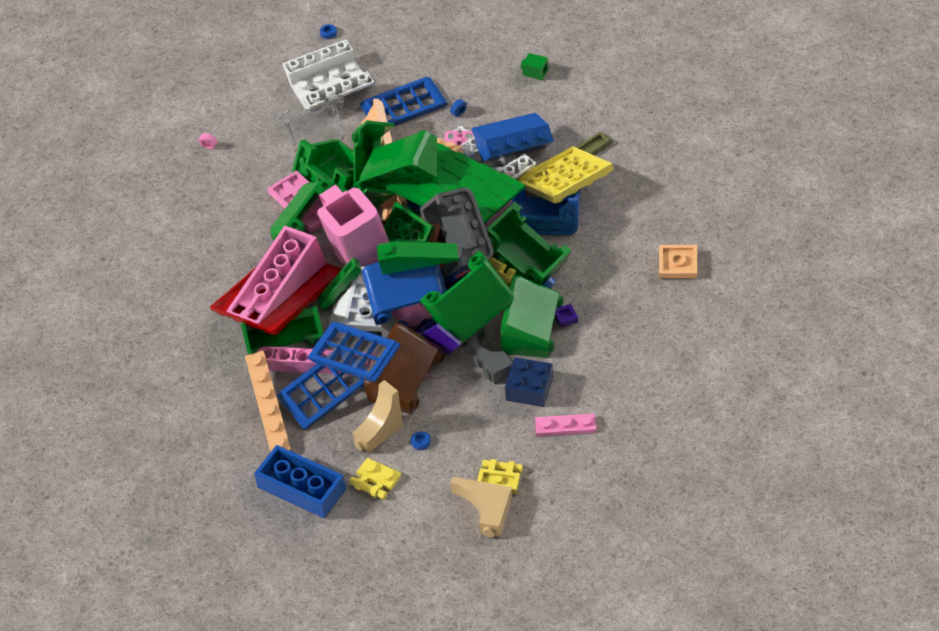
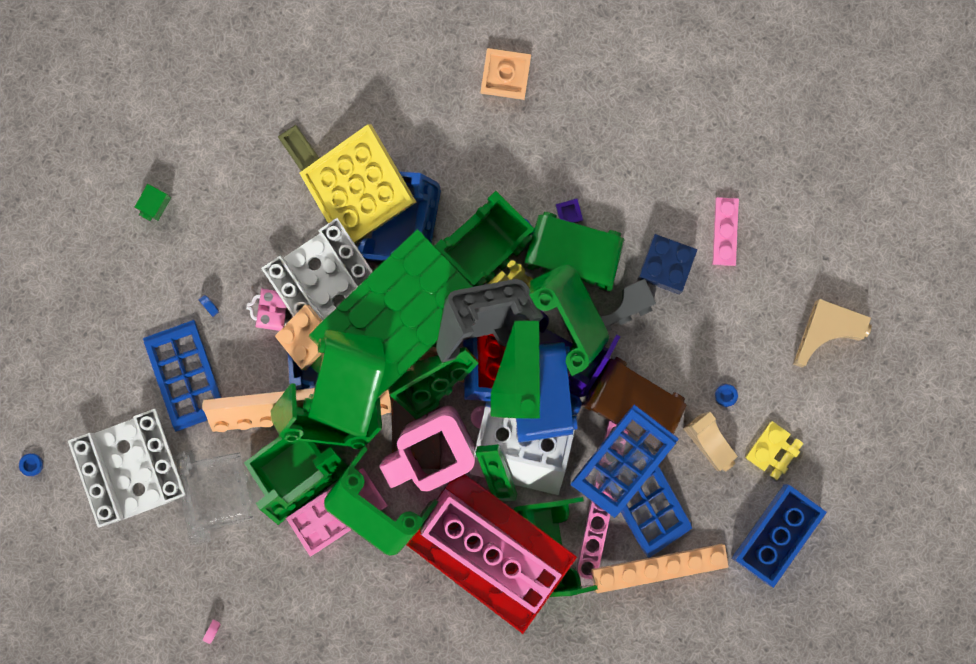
camera: 90 degrees left, 35 degrees up
(505, 477) = (796, 313): light yellow plate -> none
(512, 137) = (287, 242): blue slope -> none

